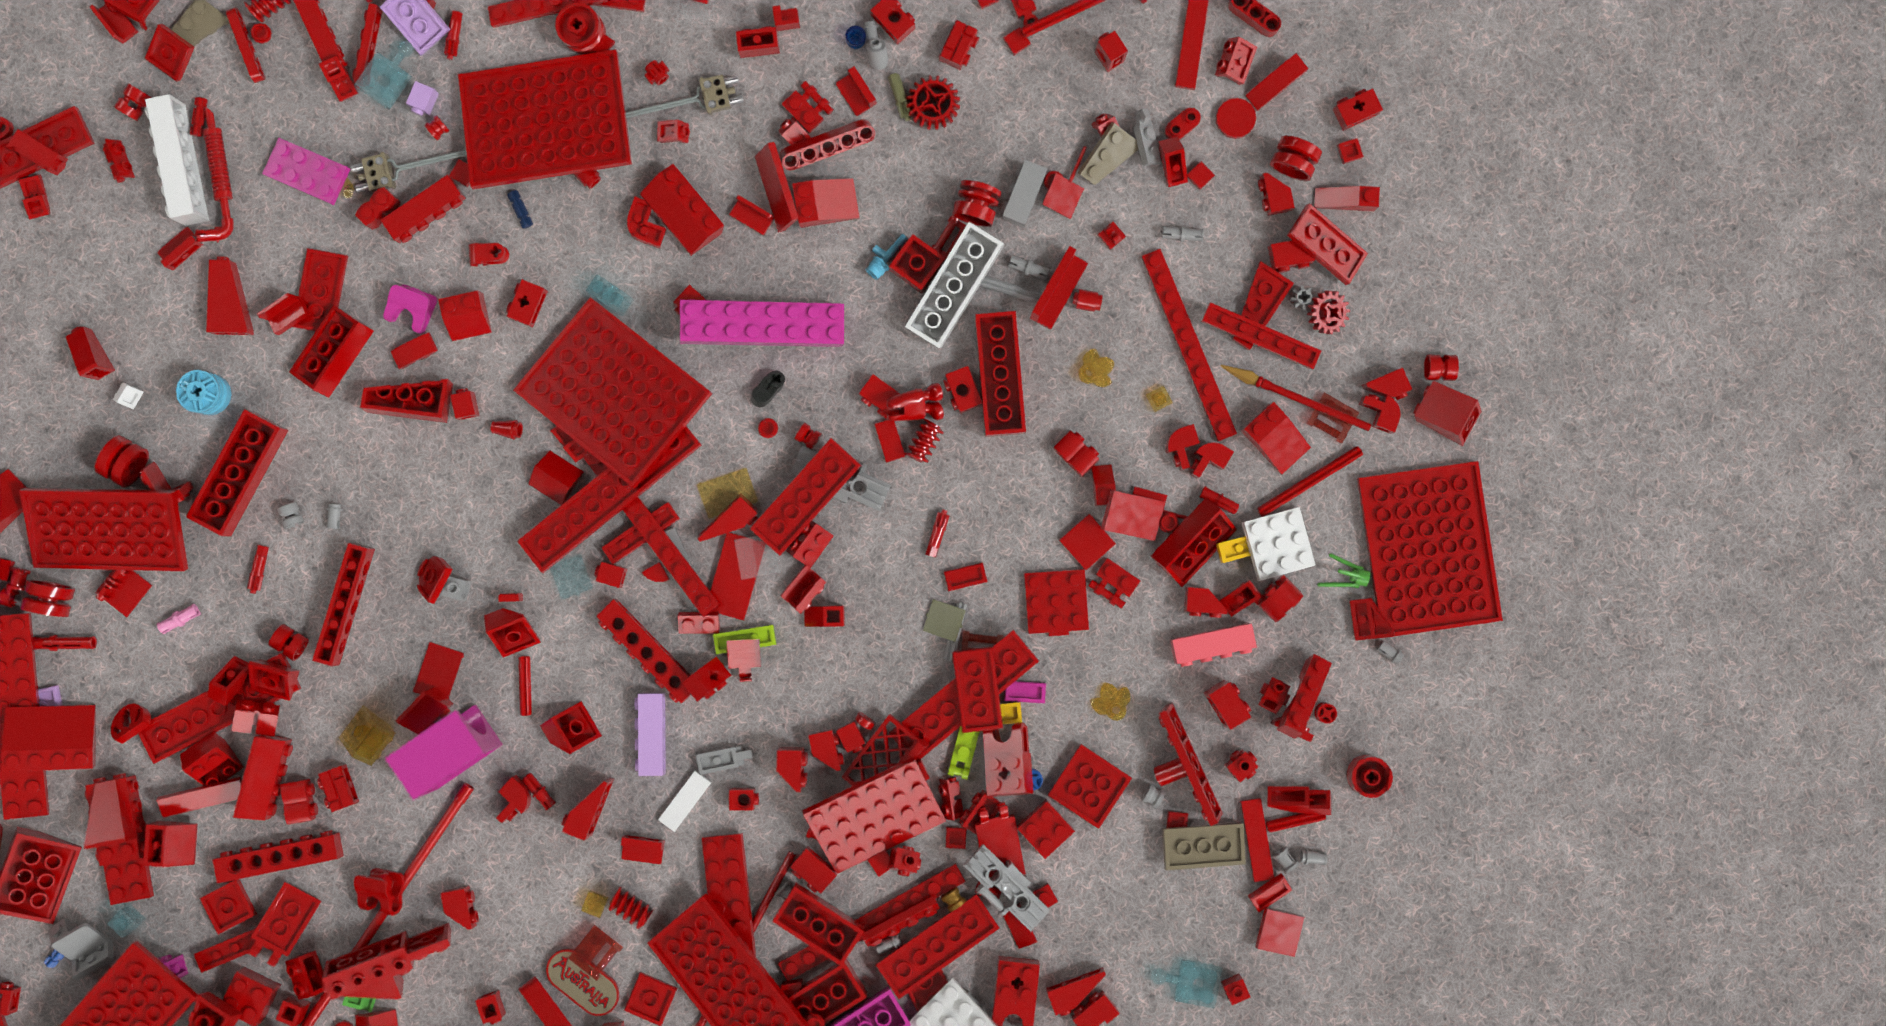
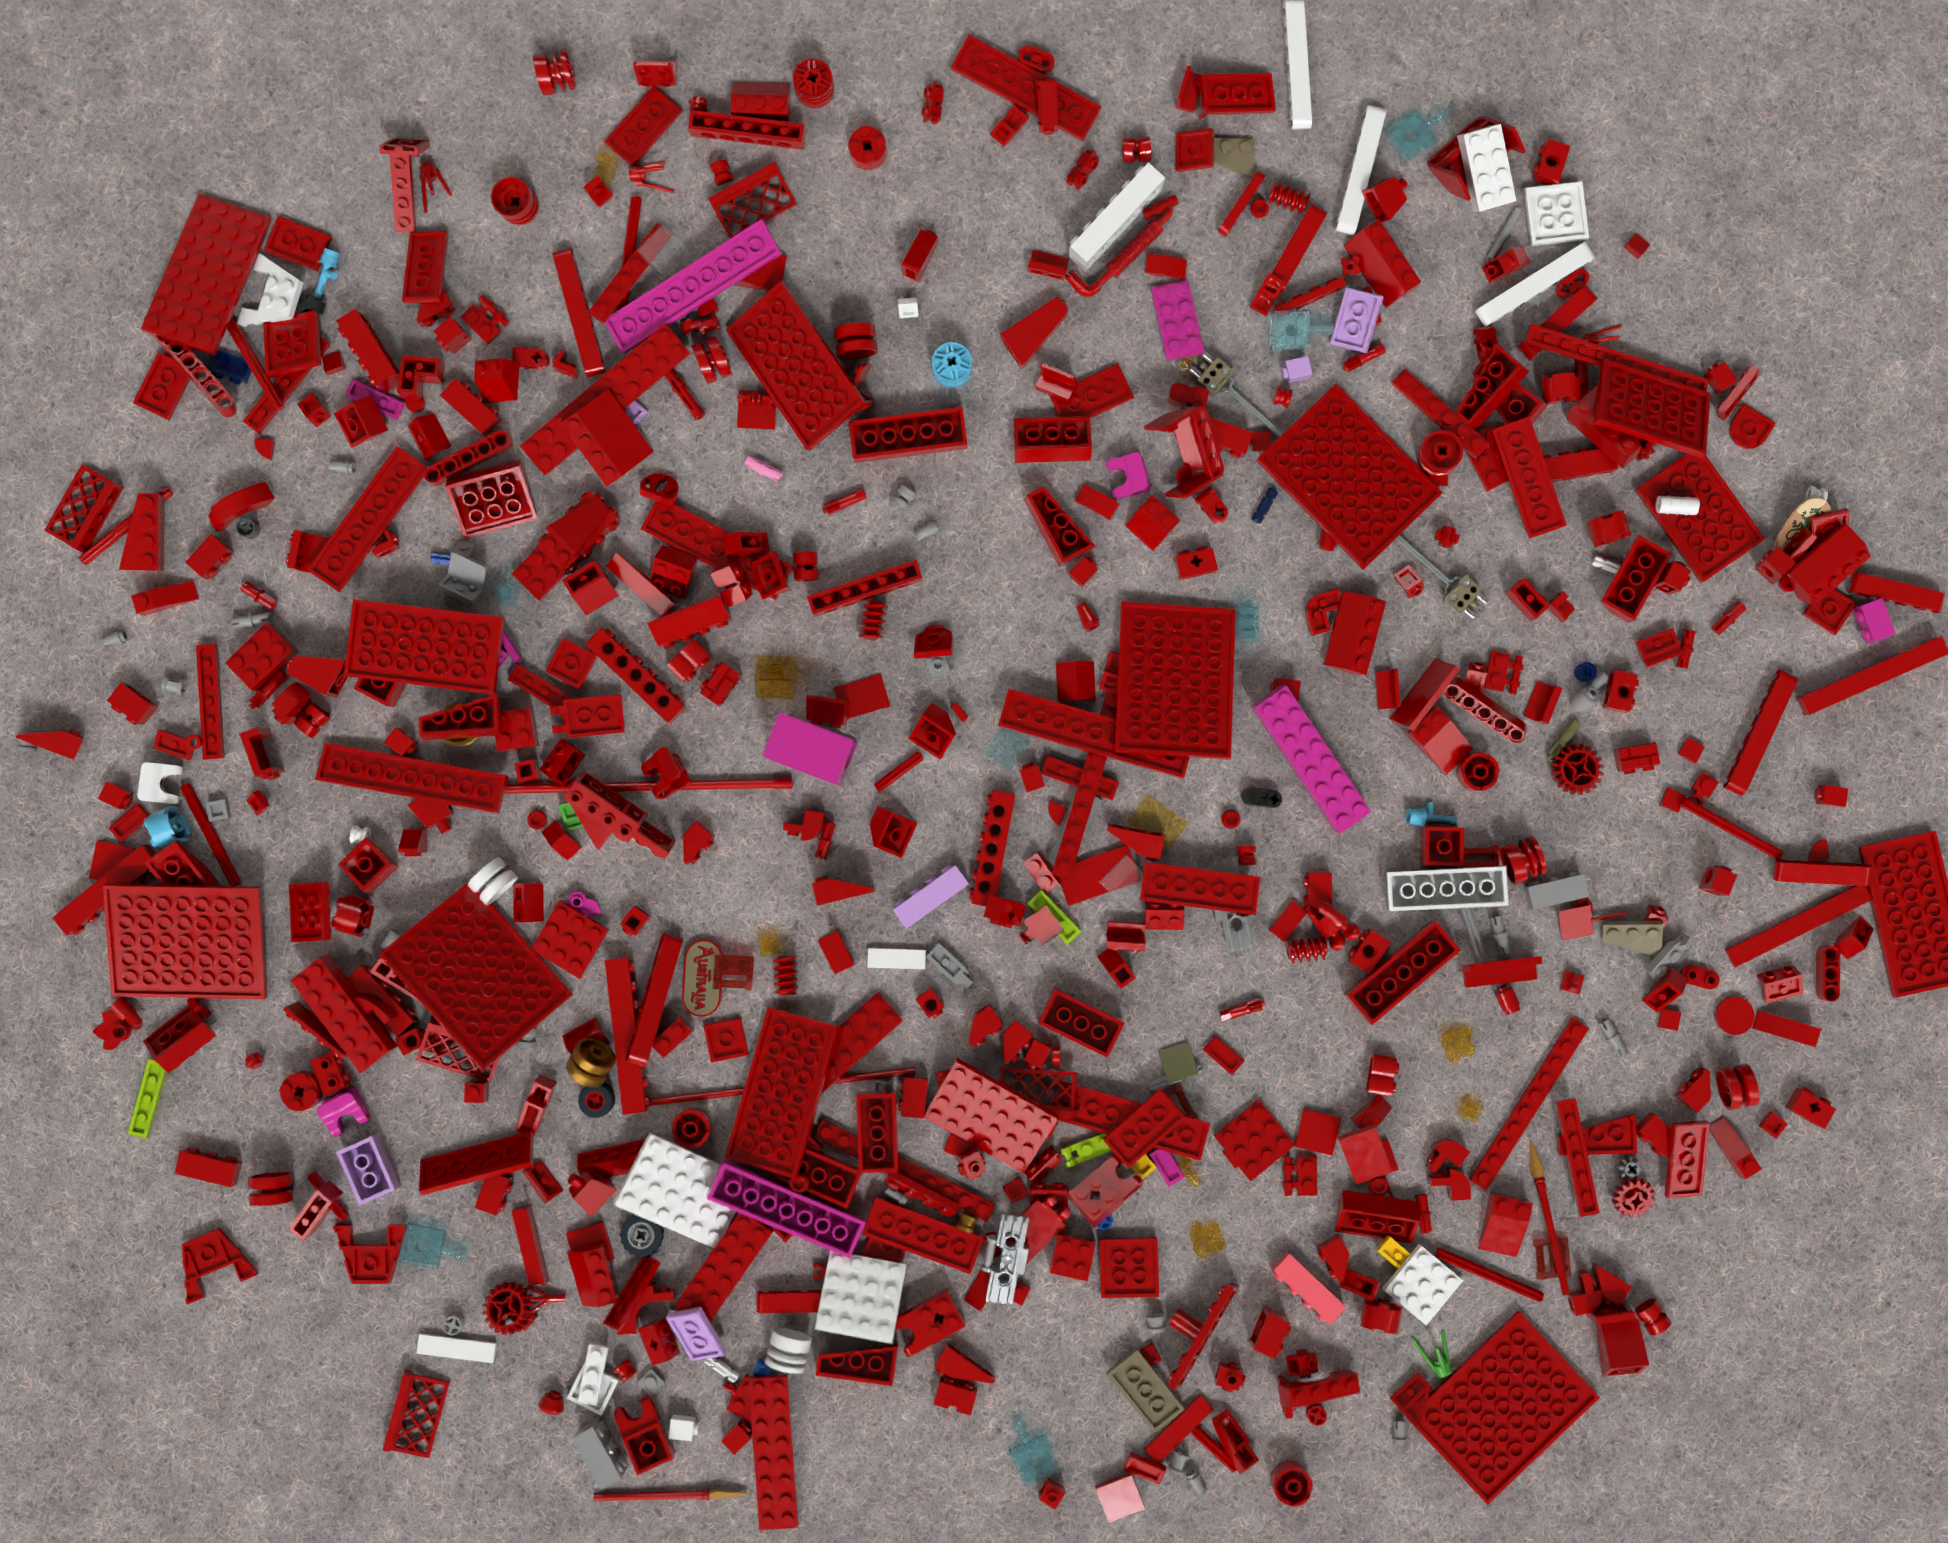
camera: 65 degrees right, 0 degrees up
(172, 950) = (510, 648): none -> dark pink tile
(252, 148) = (1165, 266): none -> red slope
(376, 616) = (873, 620): none -> red piece
(421, 230) = (1197, 447): none -> red windscreen
(849, 680) = (1081, 1022): none -> red brick
(866, 180) = (1488, 775): none -> red brick
(1044, 678) = (1188, 1174): none -> clear yellow arm
(1413, 401) = (1610, 1314): none -> red tile

